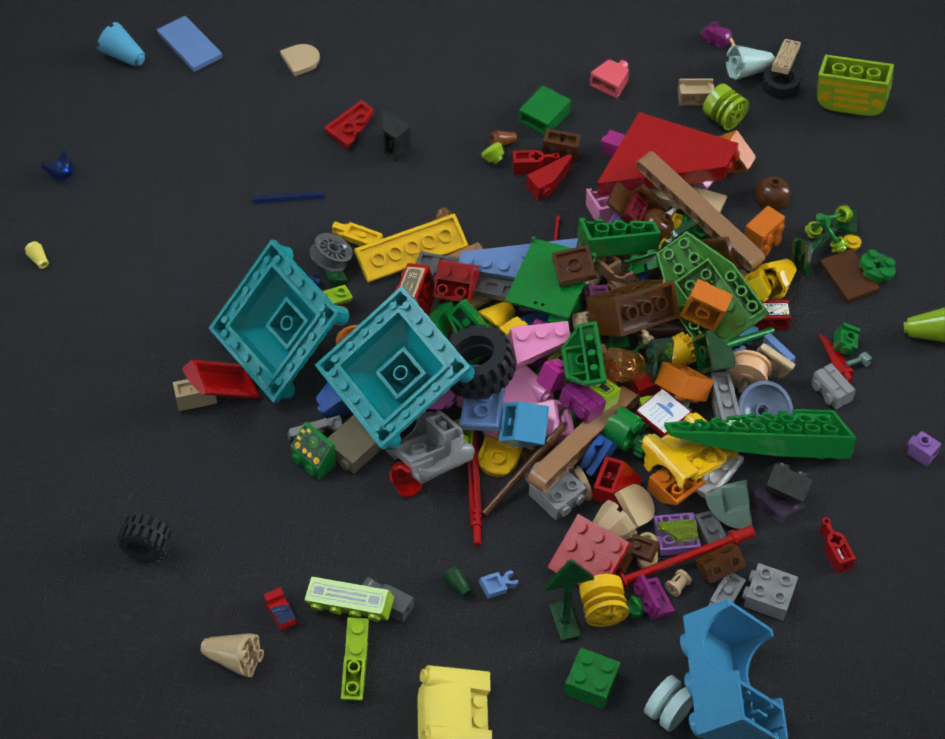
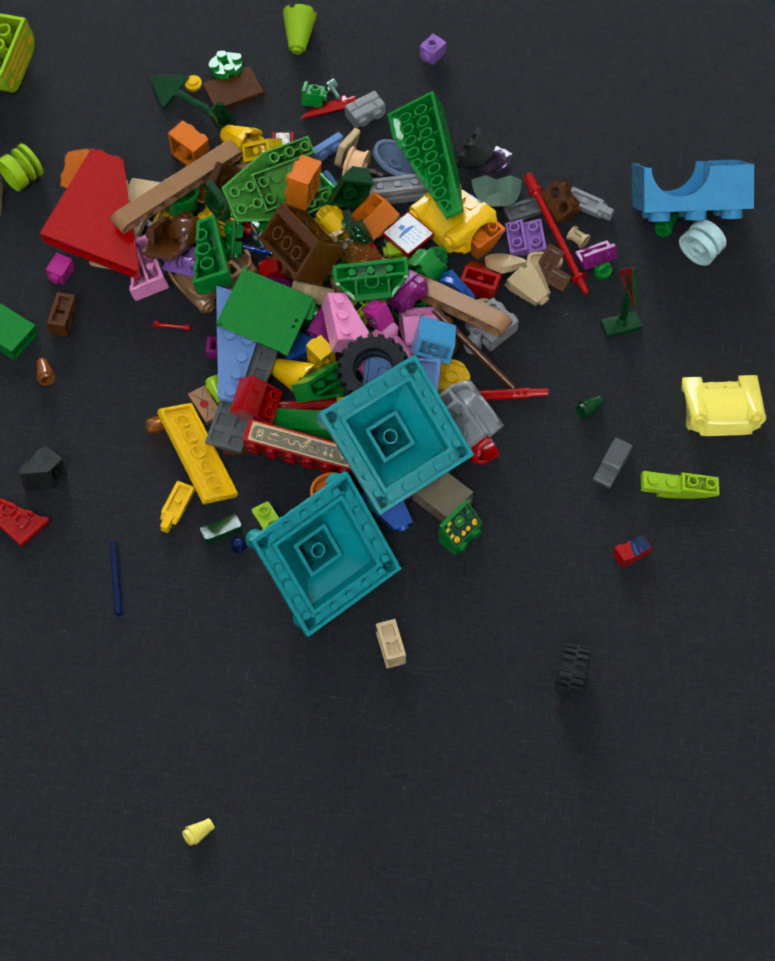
camera: 90 degrees left, 10 degrees up
(61, 168) = (58, 823): clear blue hair -> none
(220, 379) = (387, 611): red slope -> none
(236, 652) = (683, 584): tan cone -> none
(321, 425) = (426, 533): light grey hinge -> none
(331, 252) = (206, 525): dark grey wheel -> none
(349, 598) = (623, 487): brick -> none
(493, 153) = (66, 379): lime cone -> none
(496, 585) = (589, 376): medium blue plate -> none
(531, 160) = (80, 344): red piece -> none
(546, 179) = (104, 328): red slope -> none
(574, 266) = (258, 286): reddish brown plate -> none
(591, 547) = (562, 298): plate -> none
(592, 678) = (679, 302): green brick -> none
(604, 600) = (605, 288): yellow wheel -> none
(635, 208) = (175, 240): dark red plate -> none
(680, 529) = (529, 229): clear neon green tile -> none
(769, 591) = (585, 168): light grey brick -> none
(773, 192) = (130, 140): reddish brown cylinder -> none
(814, 228) = (178, 109): lime plant -> none
(836, 548) = (535, 121): red piece -> none

